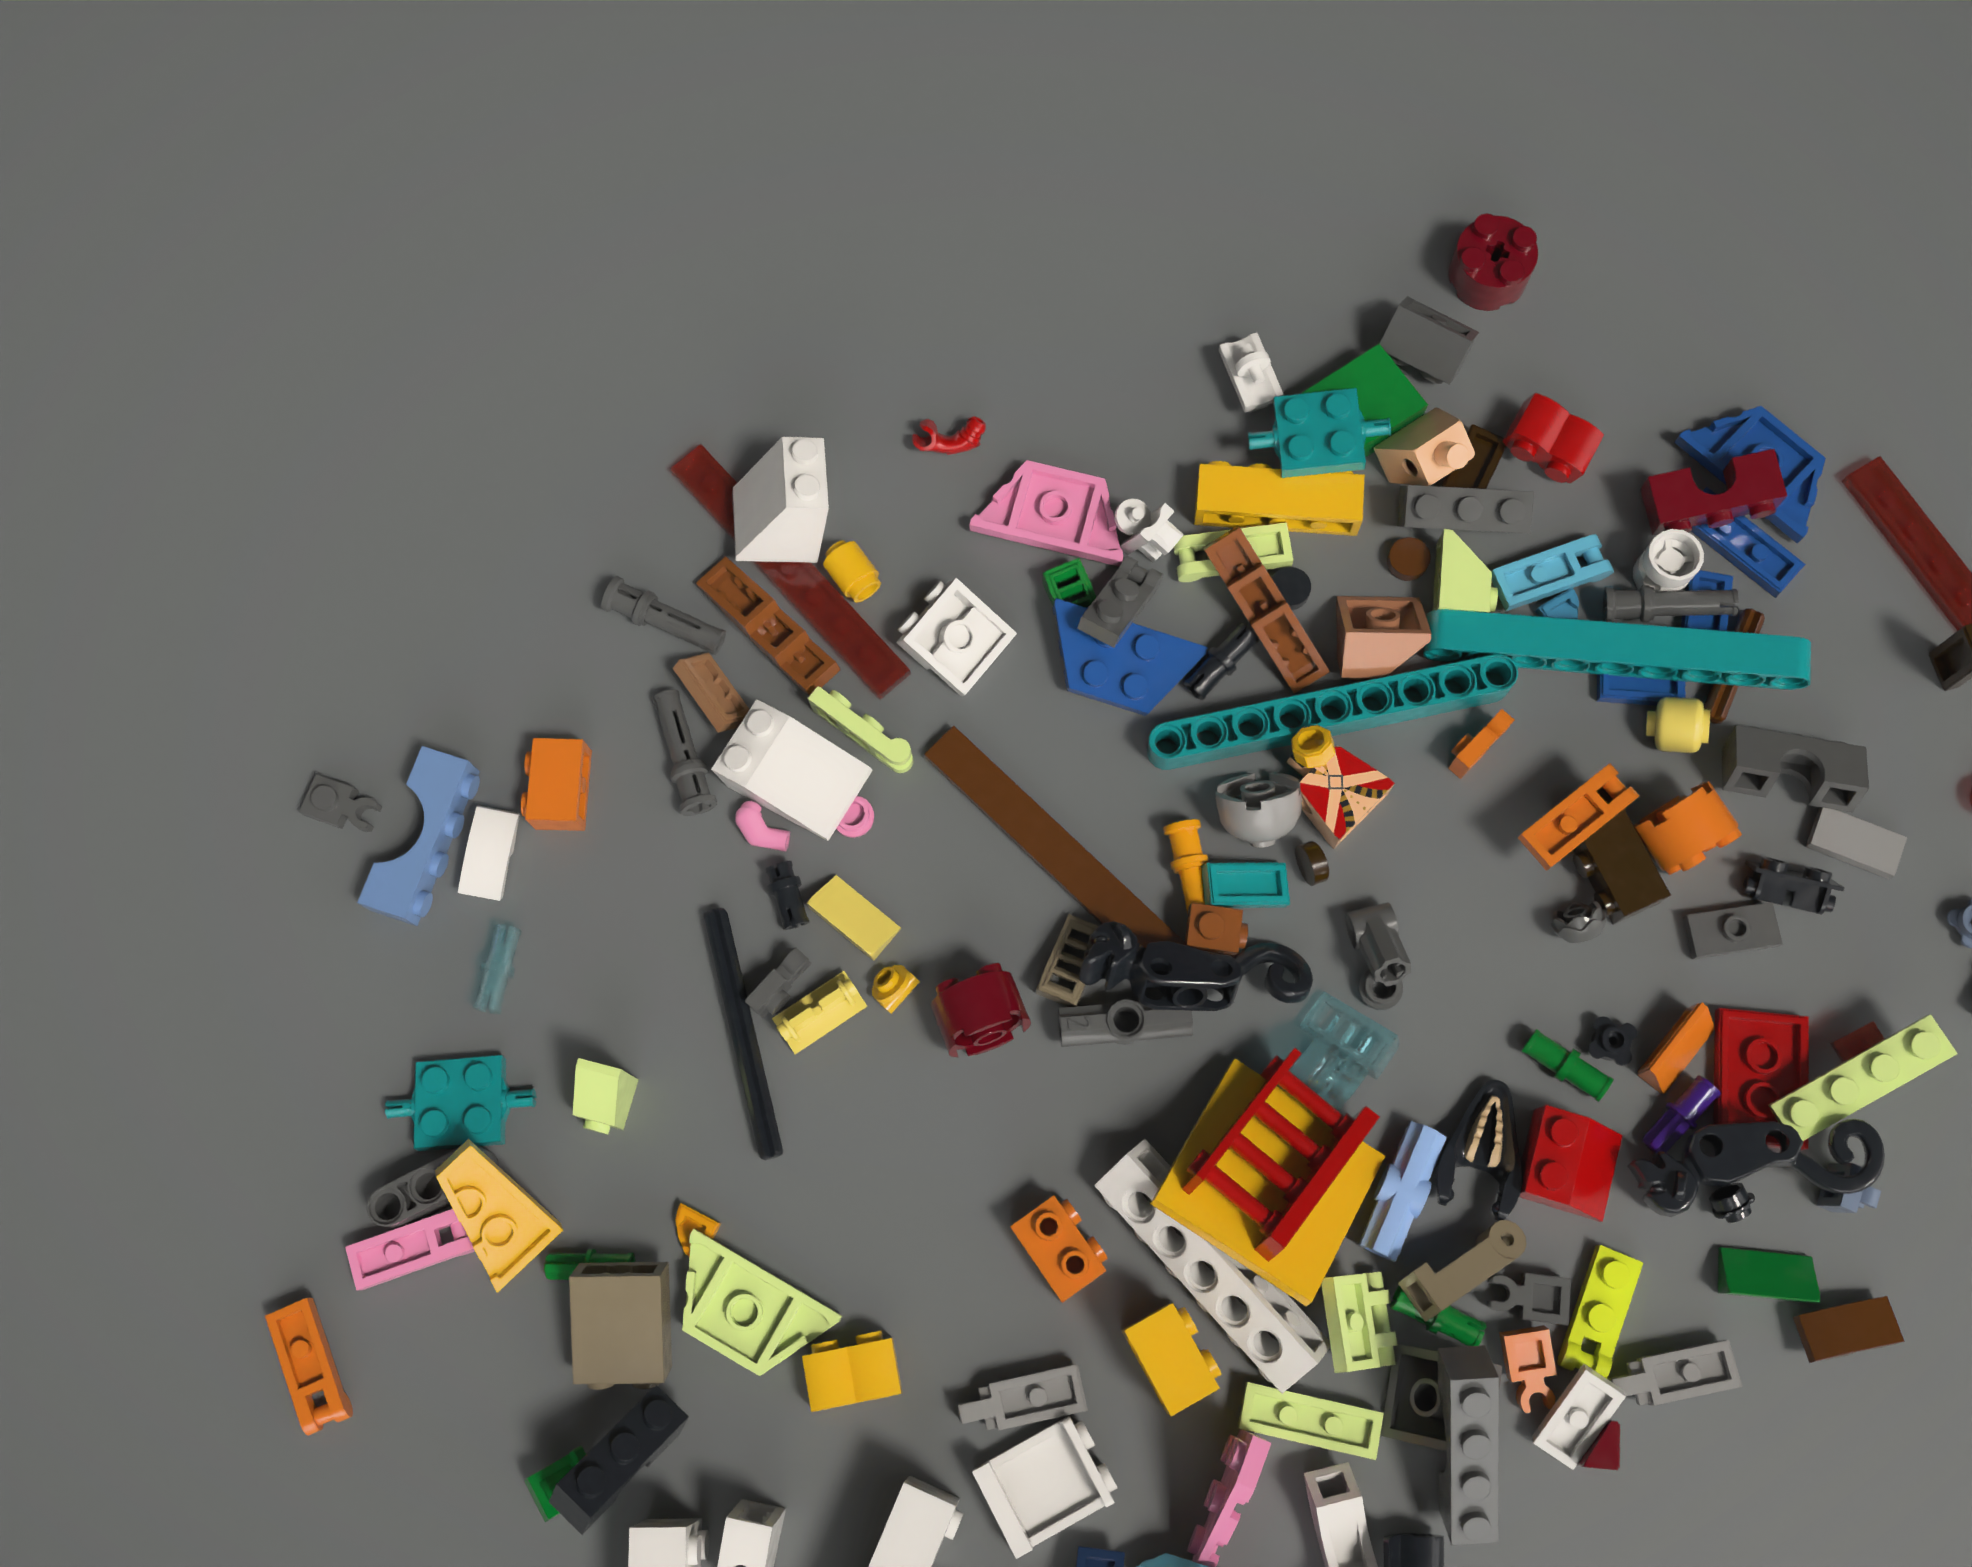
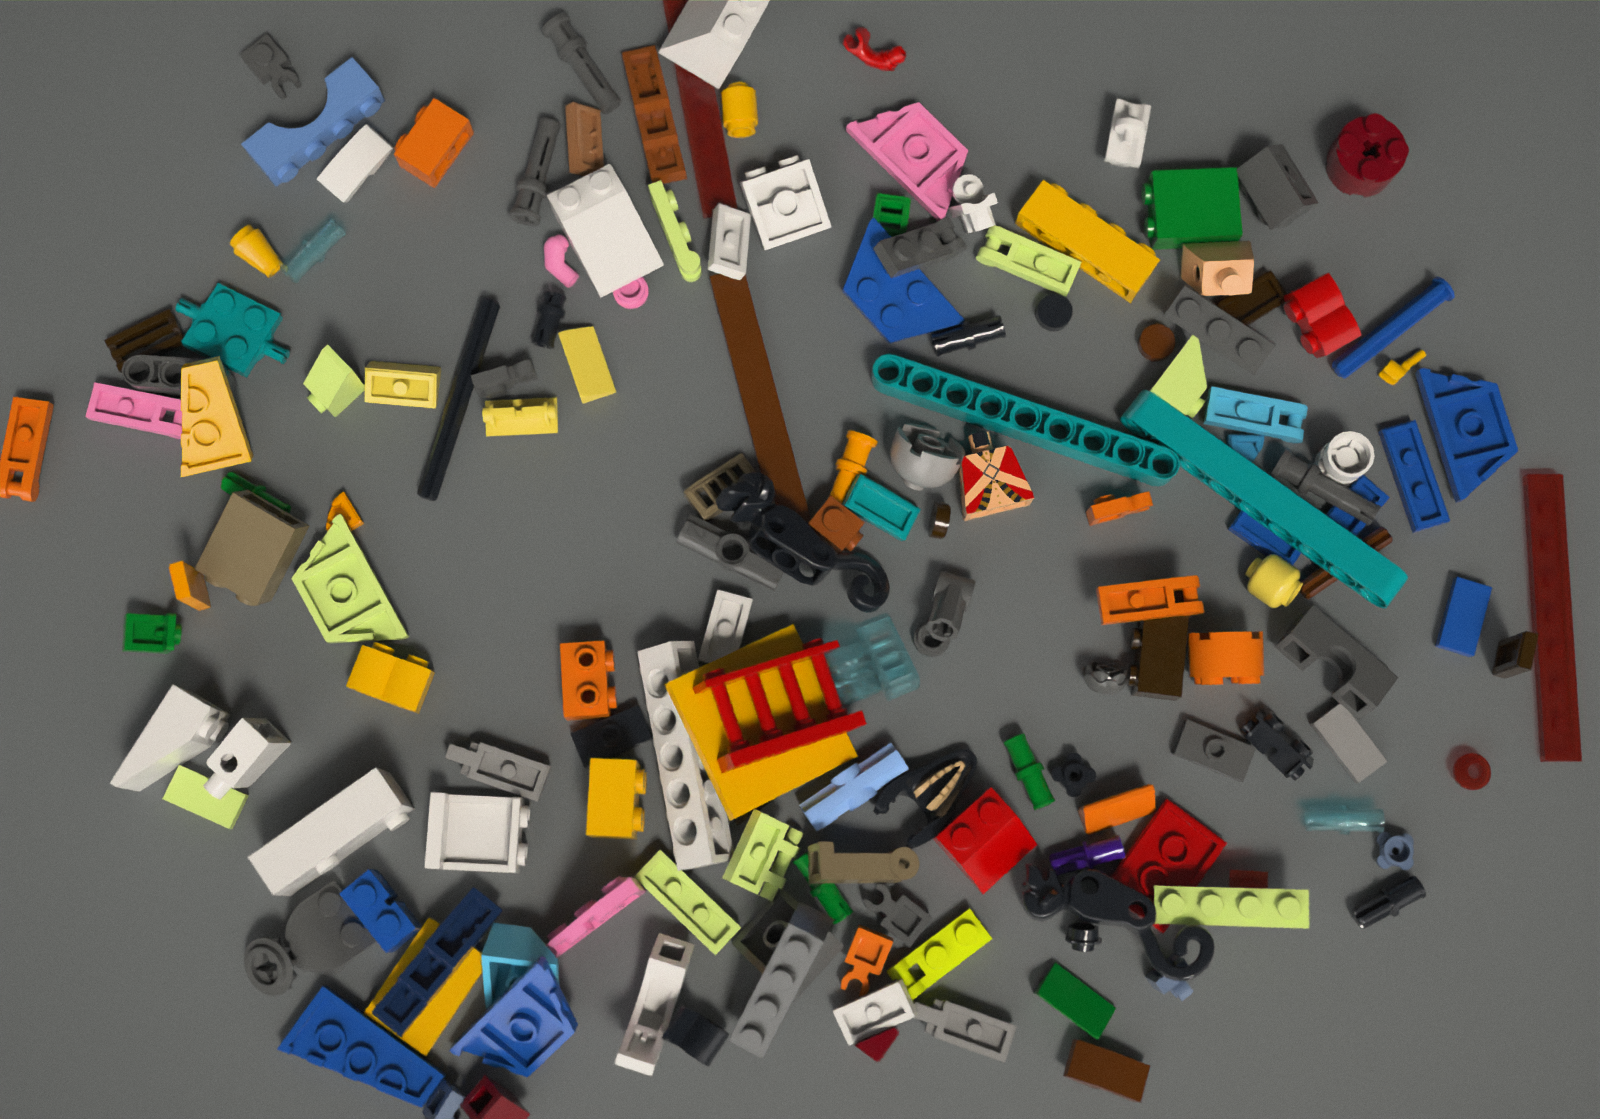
camera: 20 degrees right, 5 degrees up
(360, 1160) = (142, 328): none -> dark brown tile
(437, 1004) = (255, 250): none -> yellow cone
(579, 1406) = (189, 586): none -> light orange tile
(617, 1458) = (214, 631): black arch -> none
(673, 1052) = (402, 384): none -> light yellow slope
(893, 986) = (584, 429): yellow plate -> none
(924, 707) = (729, 241): none -> white plate
(979, 1011) = (632, 482): dark red brick -> none
(1120, 1291) = (612, 735): none -> black plate
(1166, 1105) = (725, 626): none -> white plate
(1266, 609) = (1024, 317): dark orange slope -> none
(1313, 746) = (990, 435): yellow tile -> none
(1319, 433) = (1145, 208): teal plate -> none
(1378, 634) = (1095, 383): nougat slope -> none
(1626, 410) = (1393, 327): none -> blue axle
(1654, 452) = (1394, 372): none -> yellow hand
(1752, 488) = (1381, 421): dark red arch -> none
(1880, 650) = (1463, 617): none -> blue tile
(1905, 922) = (1344, 820): none -> clear light blue pin

